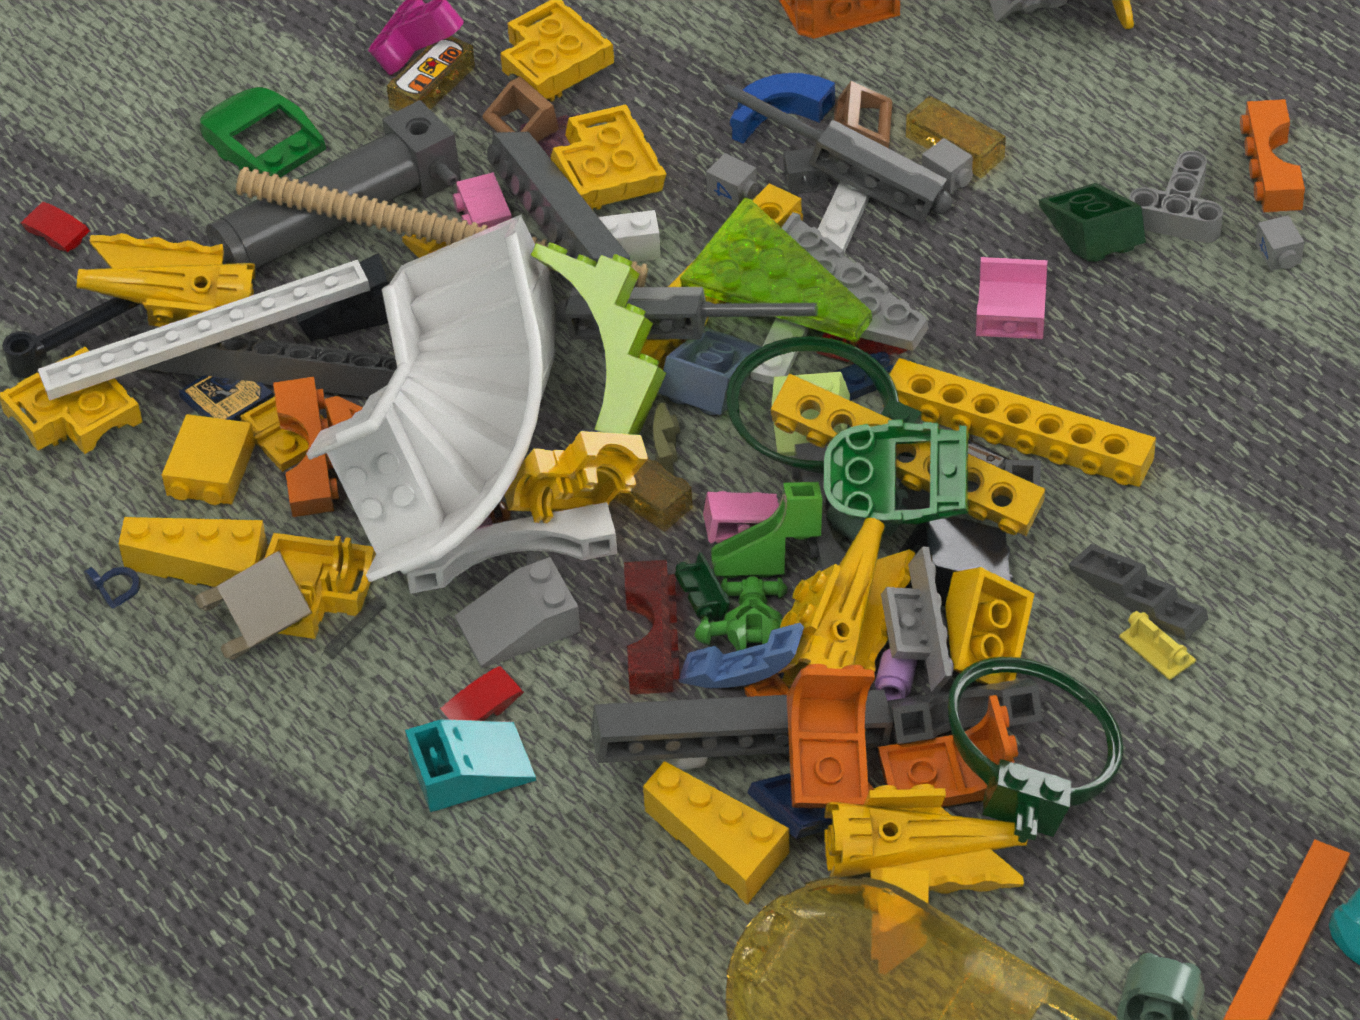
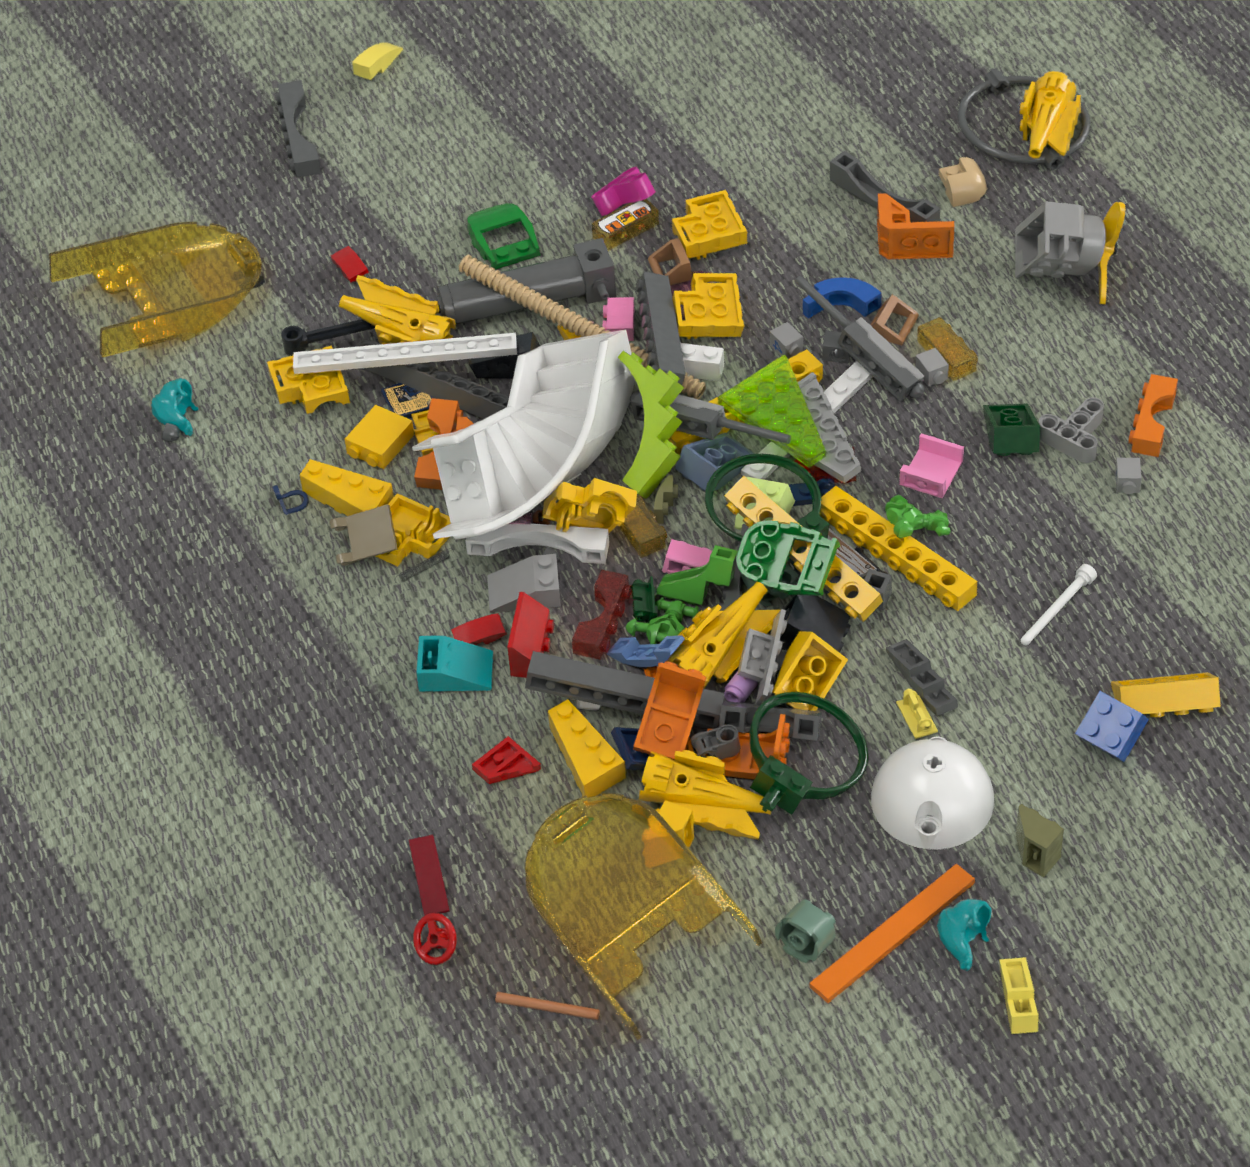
camera: 20 degrees right, 0 degrees up
(563, 688) = (528, 634): none -> red slope
(606, 880) = (505, 762): none -> red wing
(902, 764) = (718, 742): none -> dark grey piece
(1023, 377) = (909, 518): none -> bright green piece
(1232, 732) = (934, 781): none -> white piece
(1287, 393) = (1084, 576): none -> white piece

